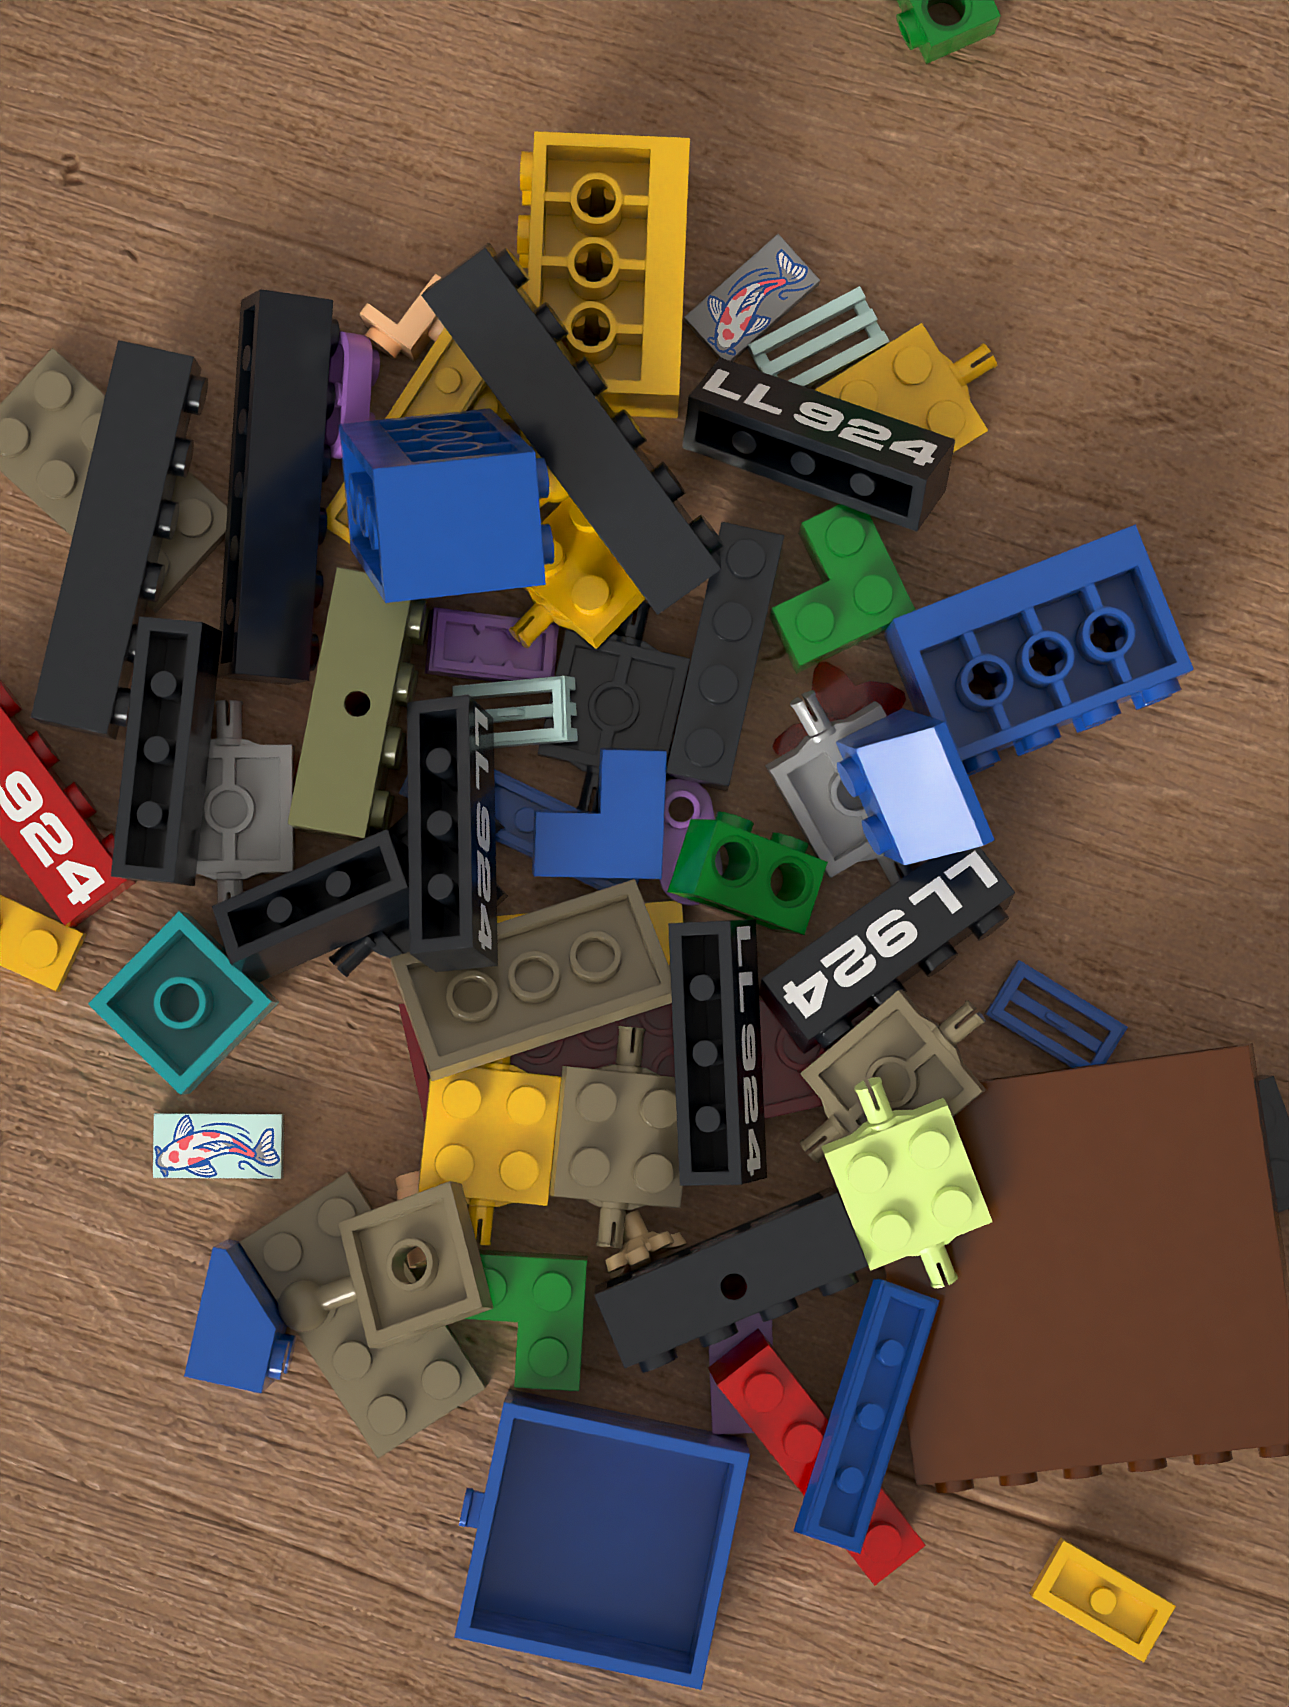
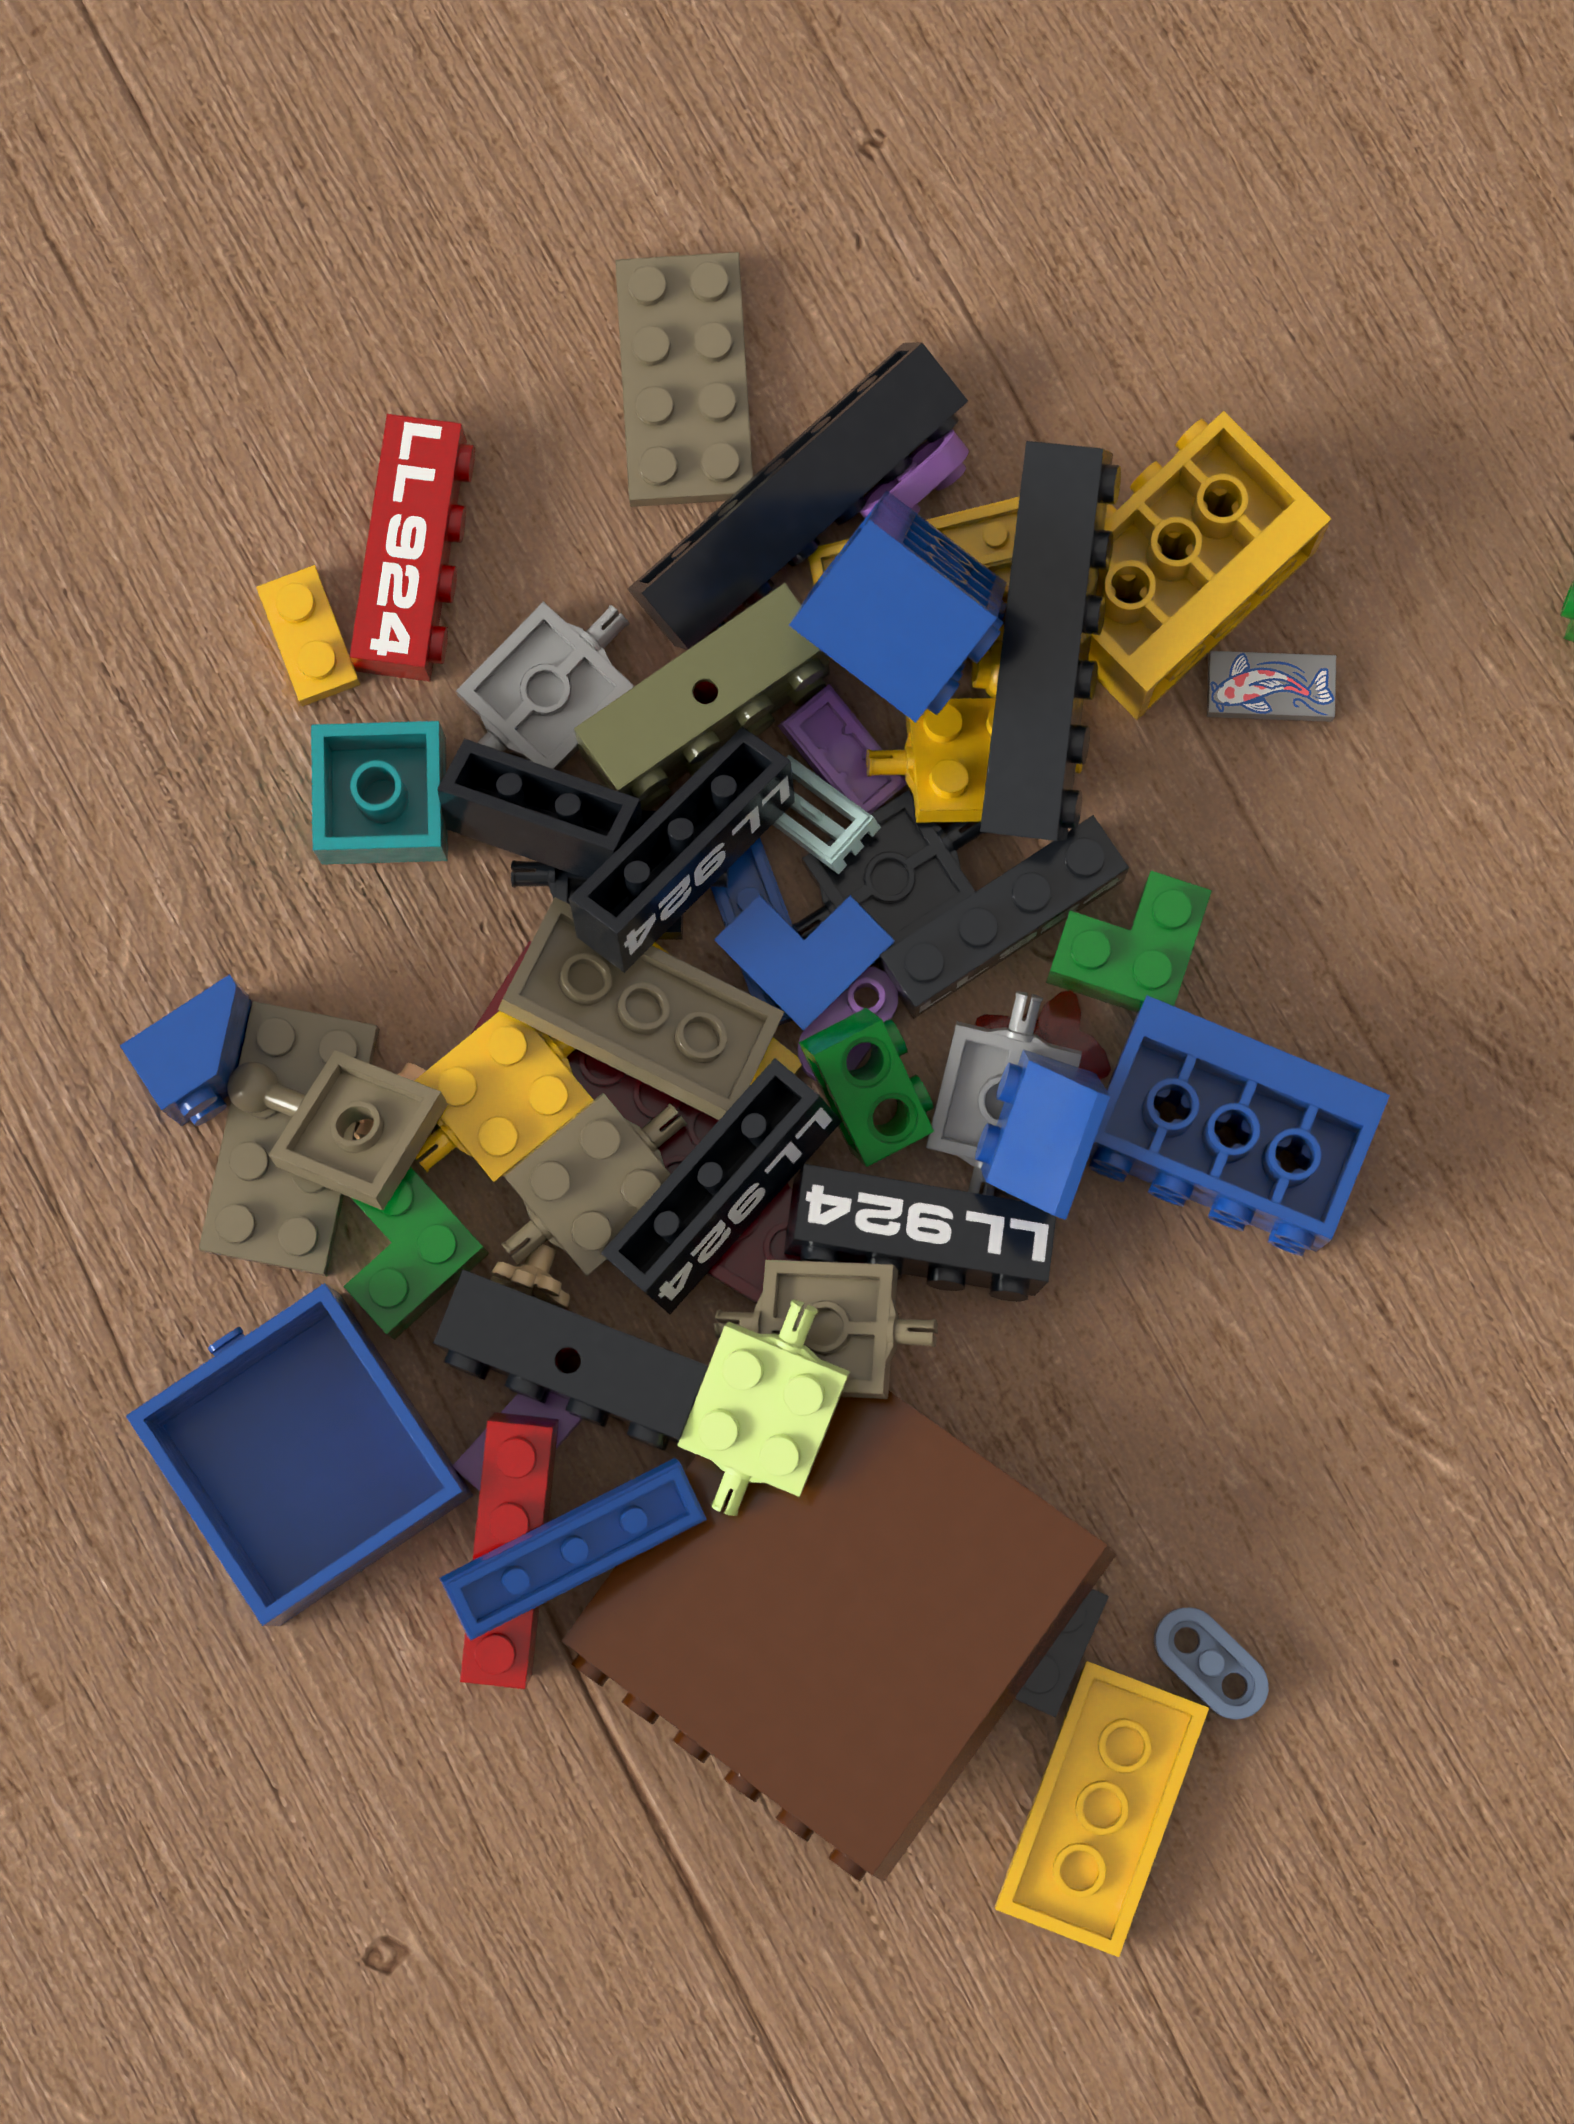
camera: 50 degrees right, 5 degrees down
(119, 538) = (651, 425): black brick -> none
(166, 751) = (539, 601): black brick -> none
(218, 1145) = (305, 920): tile -> none
(410, 334) = (999, 477): light nougat bracket -> none
(818, 443) = (1217, 826): black brick -> none
(865, 320) = (1294, 739): light aqua tile -> none
(917, 385) = (1302, 865): yellow plate -> none
(1009, 992) = (977, 1358): blue tile -> none
(1102, 1599) = (615, 1862): yellow plate -> none

